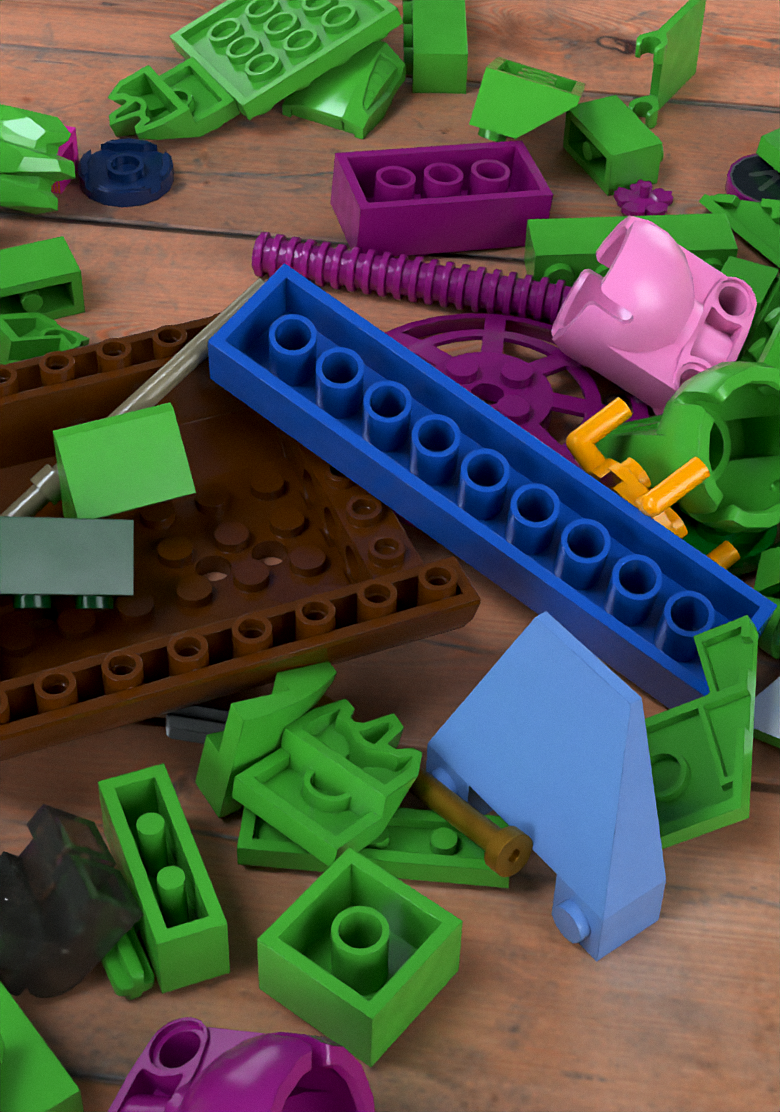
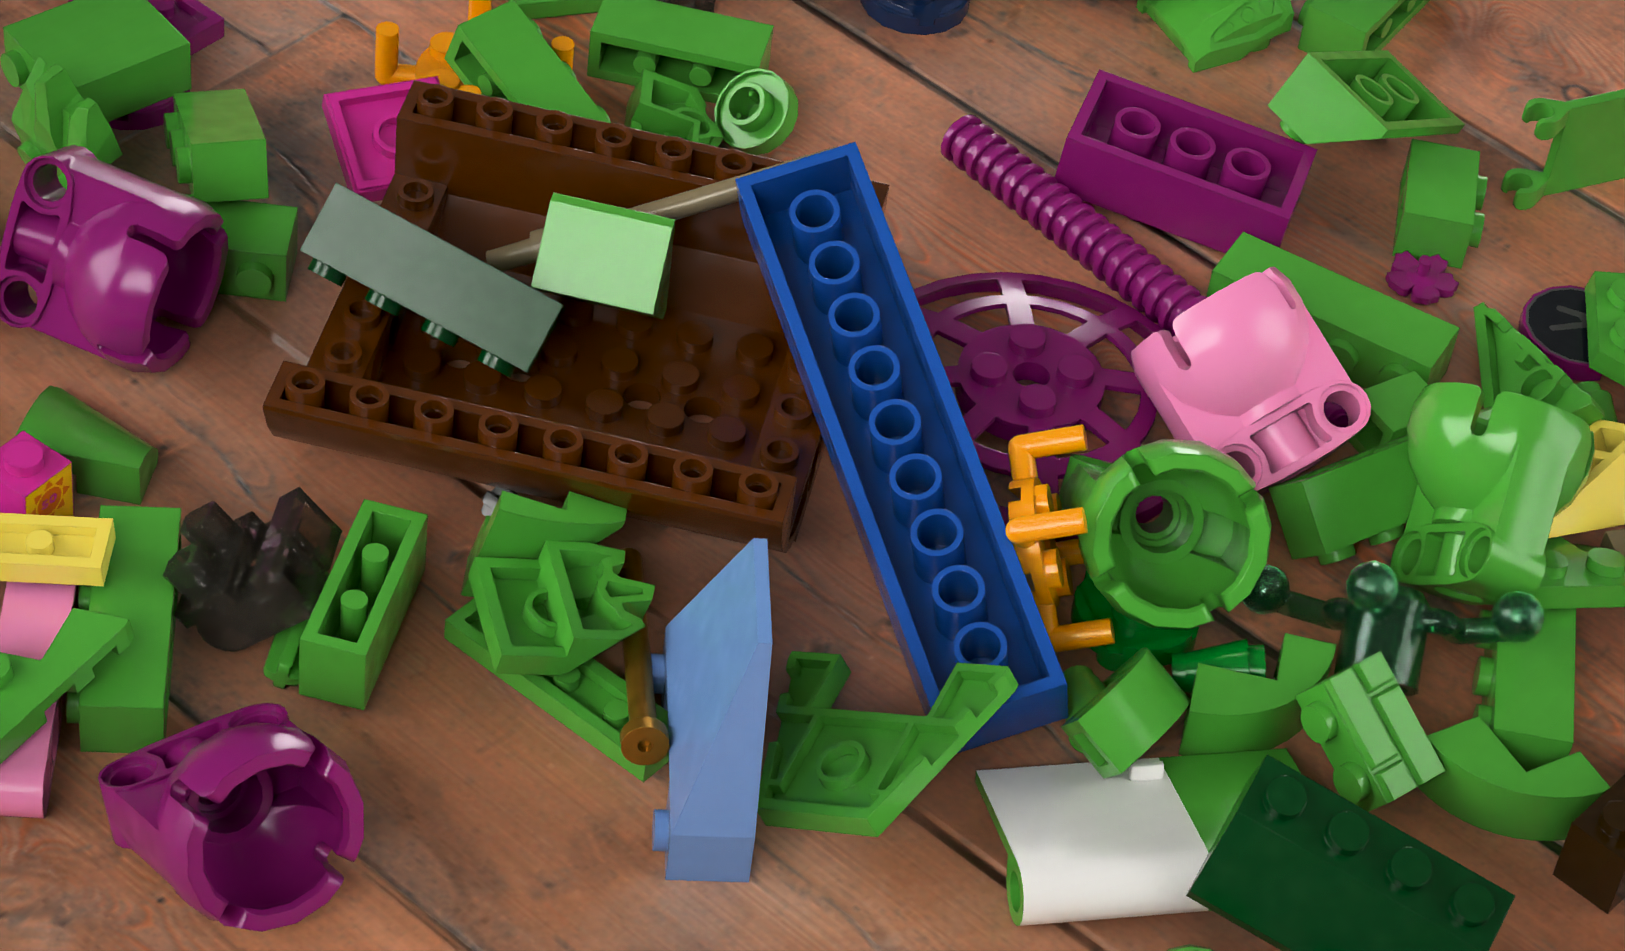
camera: 30 degrees right, 0 degrees up
(101, 305) = (756, 111): none -> bright green plate
(359, 955) = (459, 748): bright green brick -> none

